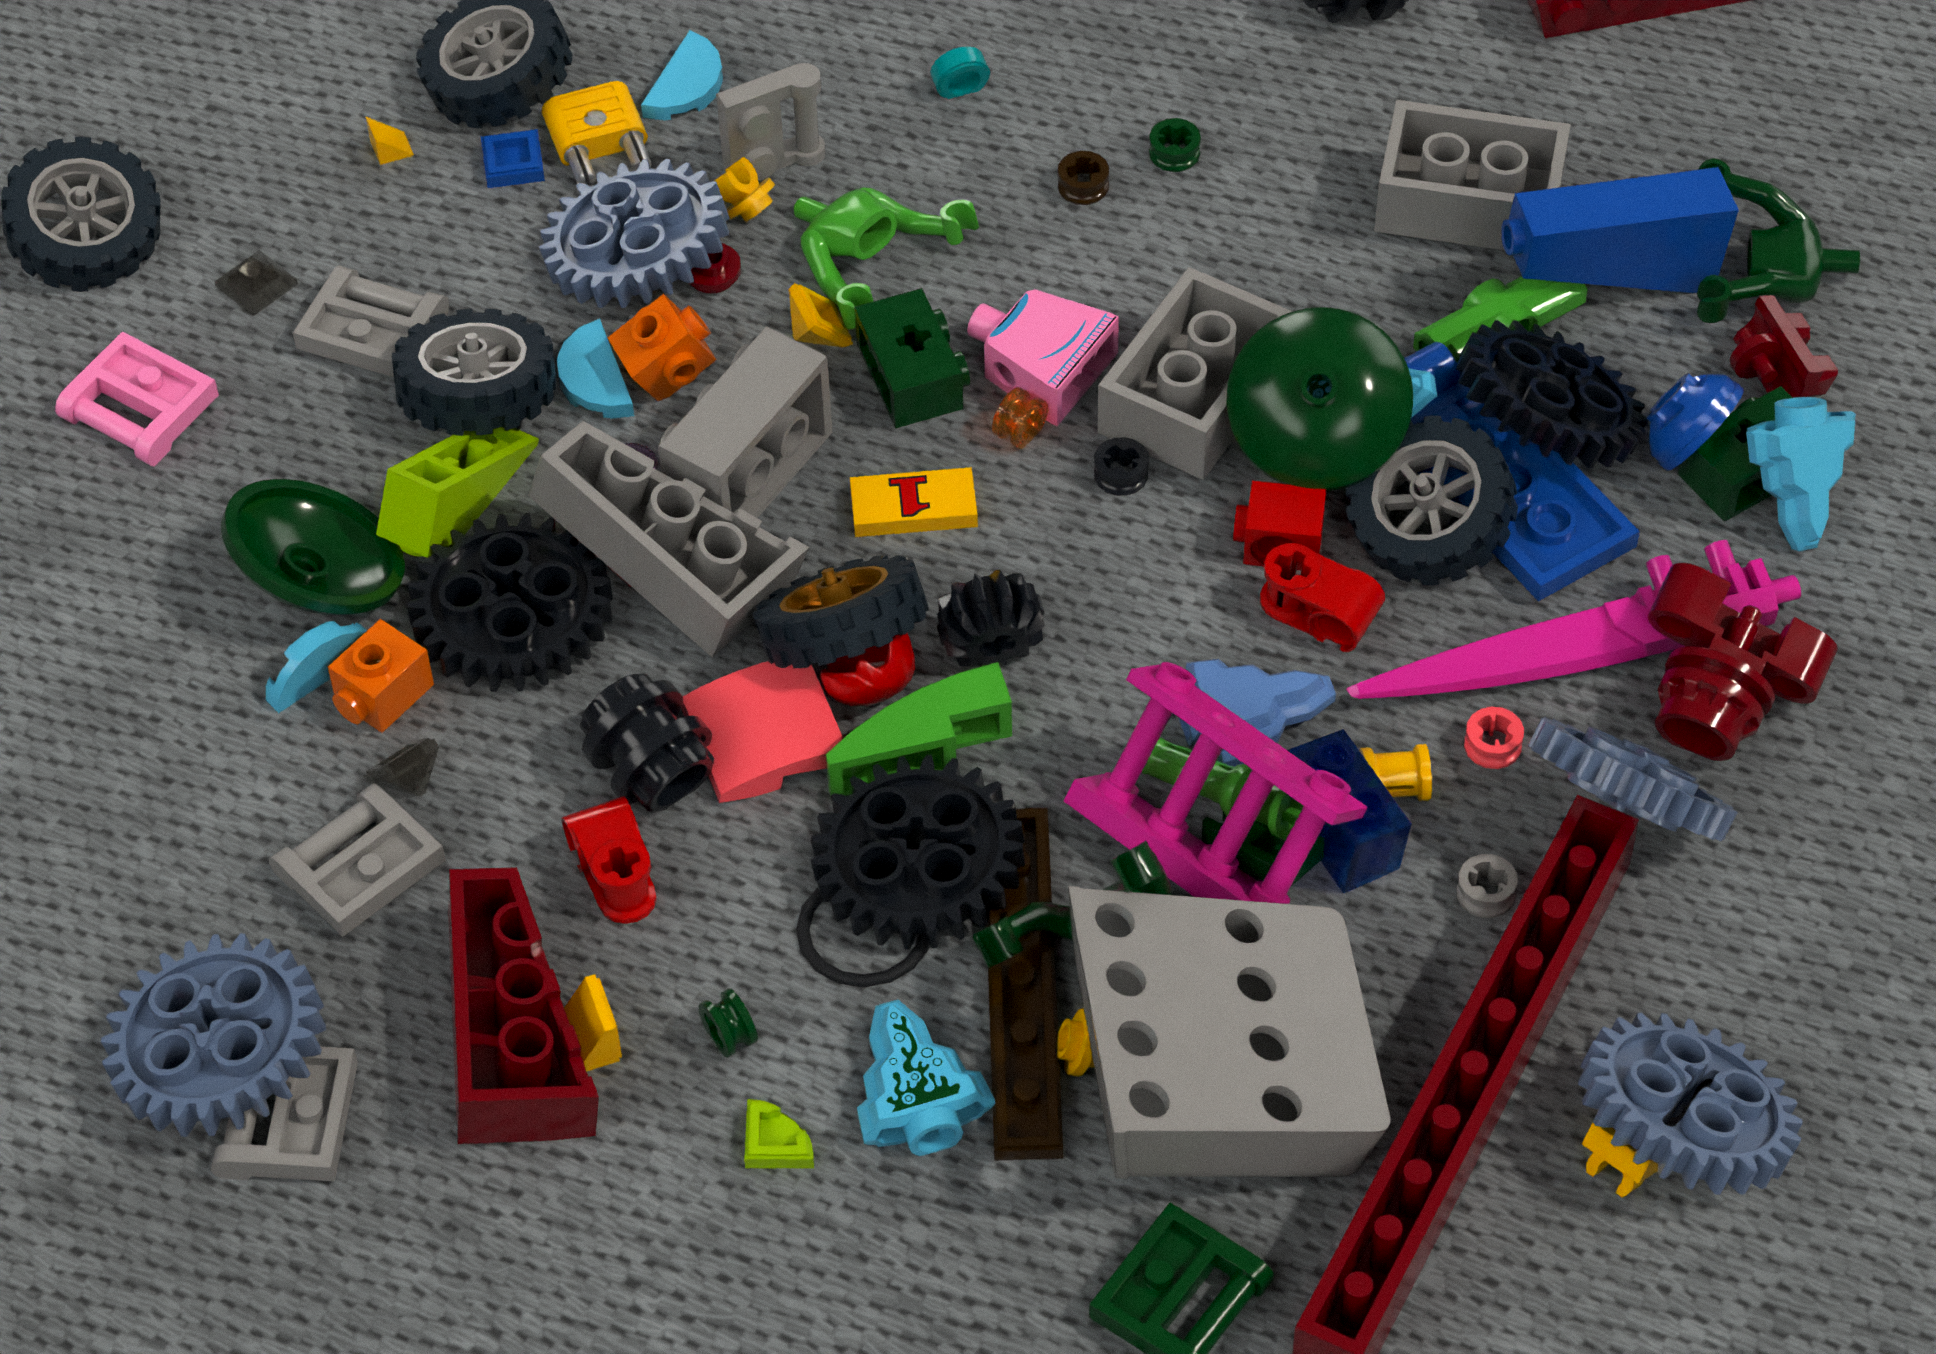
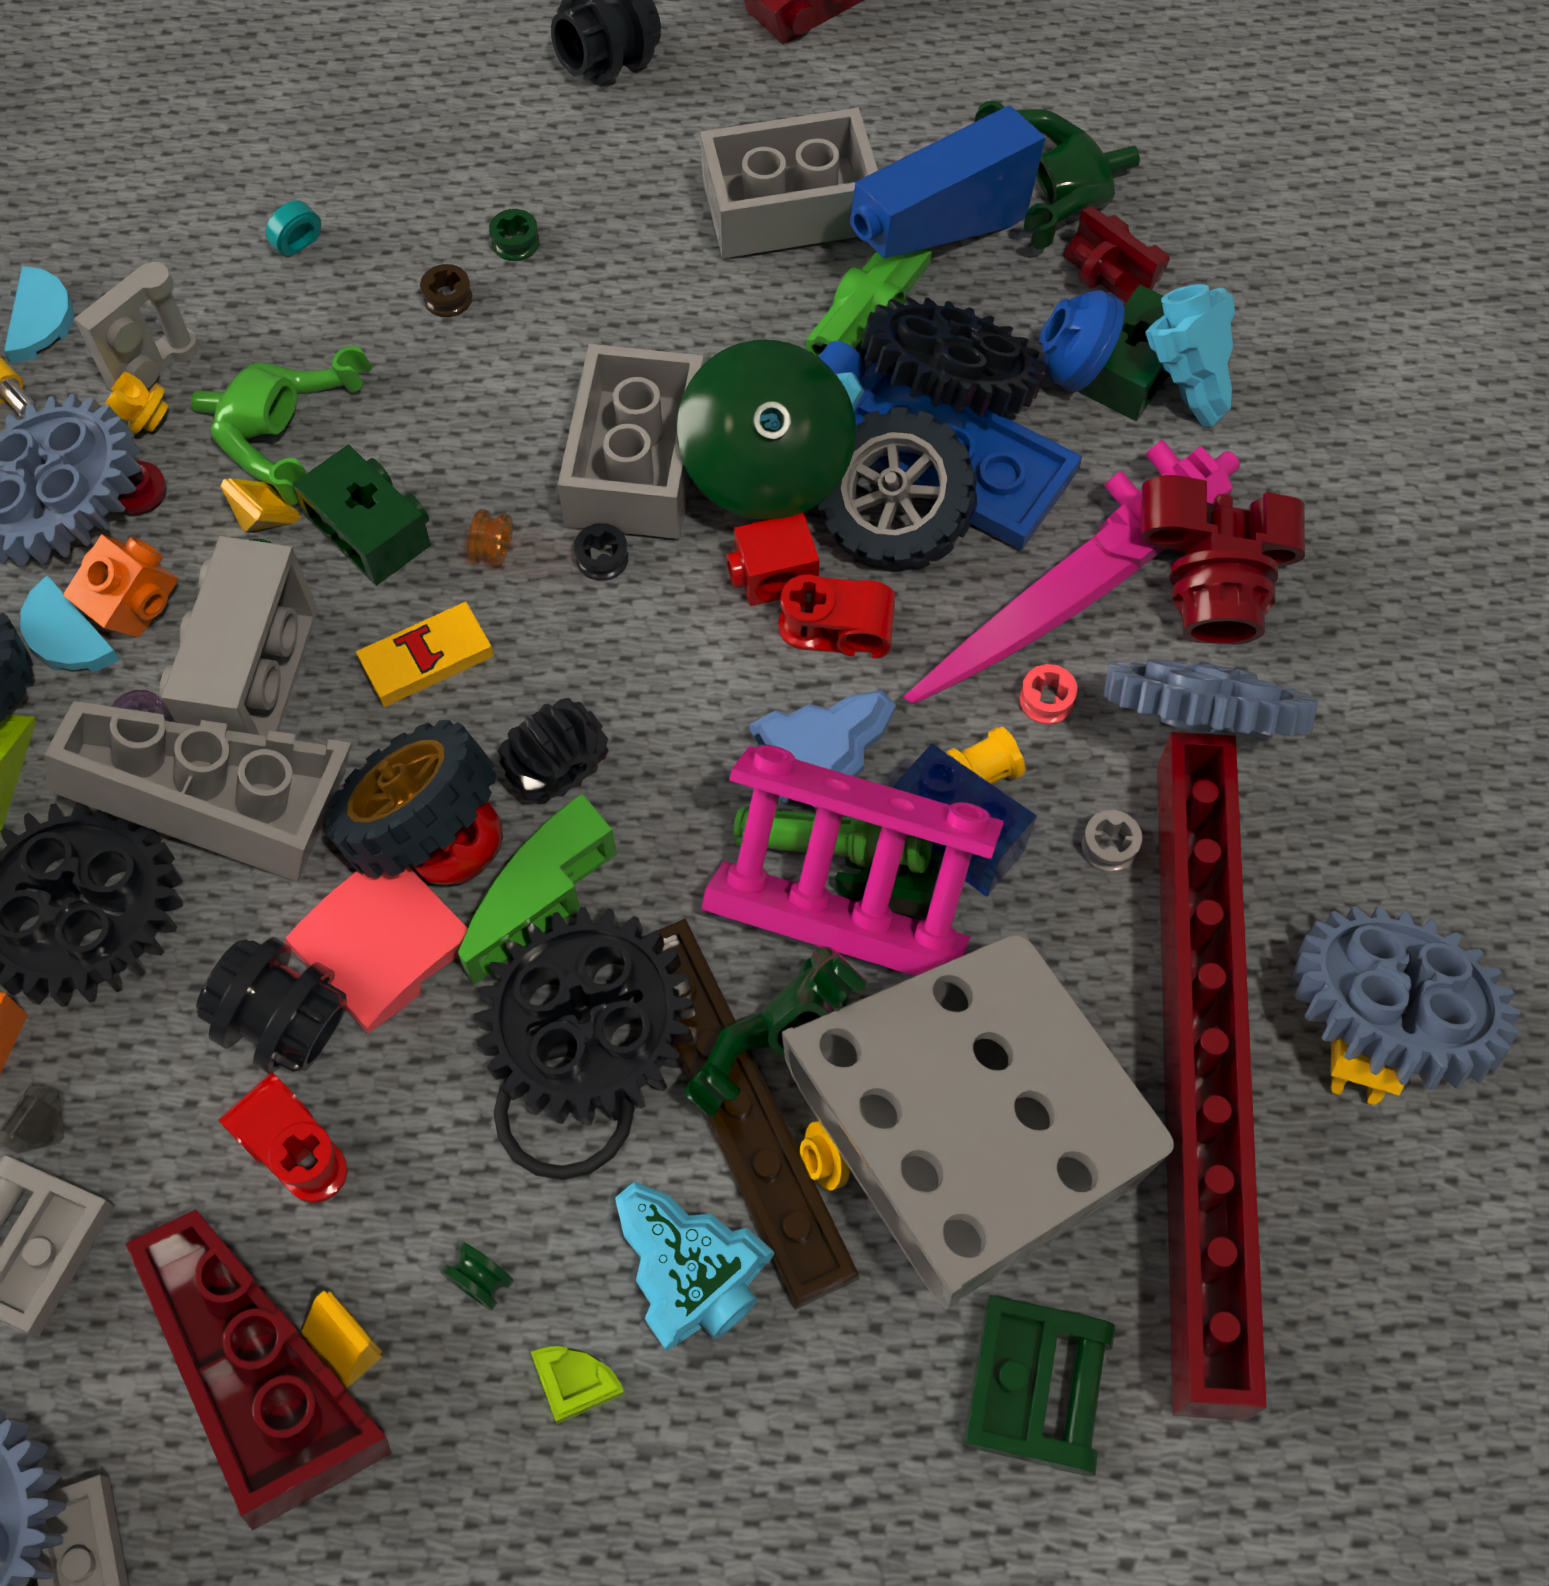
camera: 25 degrees left, 10 degrees up
(1046, 348) = (484, 462): bright pink torso -> none

